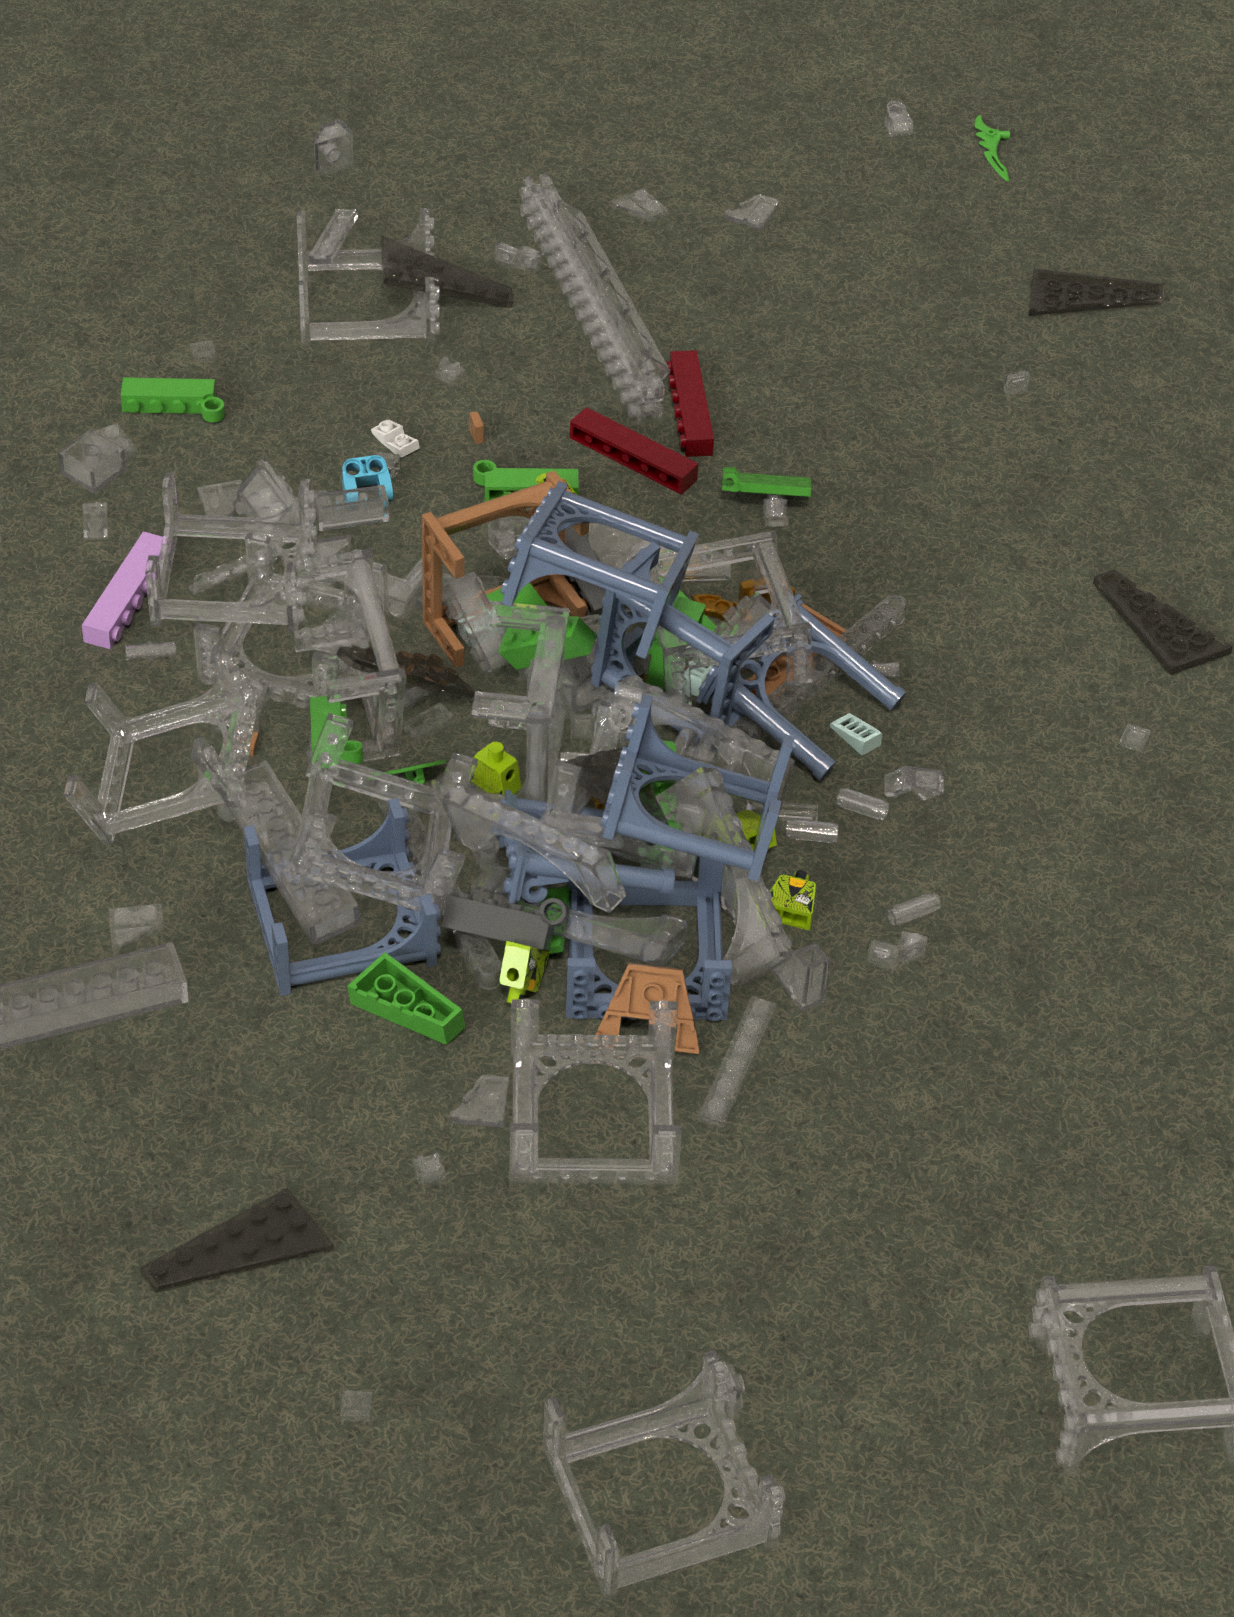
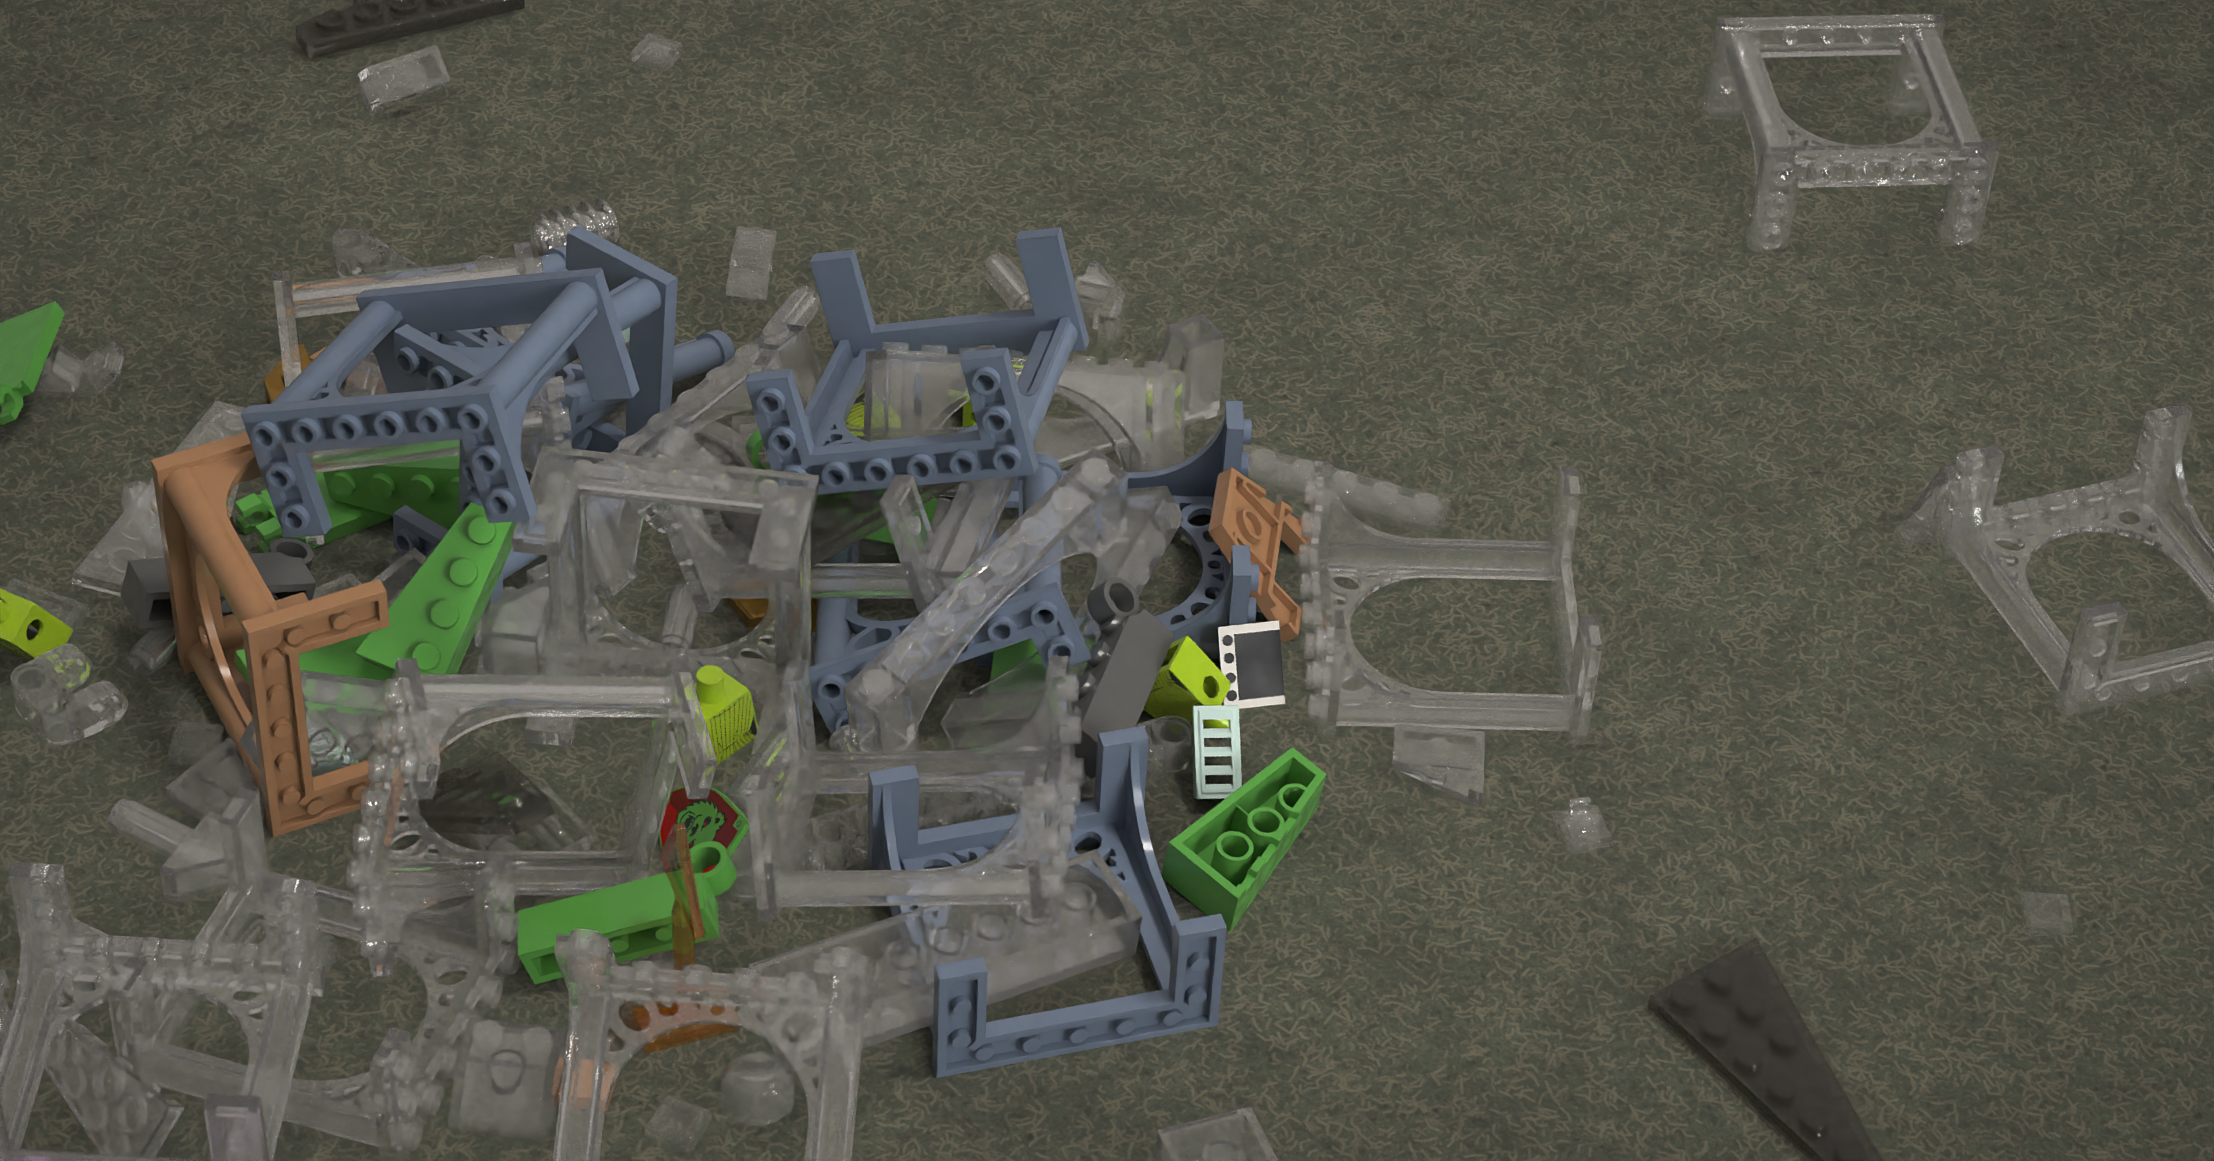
camera: 90 degrees left, 5 degrees down
(281, 703) = (686, 928): none -> clear orange piece
(471, 987) = (1216, 791): none -> light aqua slope
(552, 1006) = (1252, 664): none -> black sticker
(932, 702) = (552, 230): none -> clear piece
(1064, 616) = (402, 78): none -> clear brick

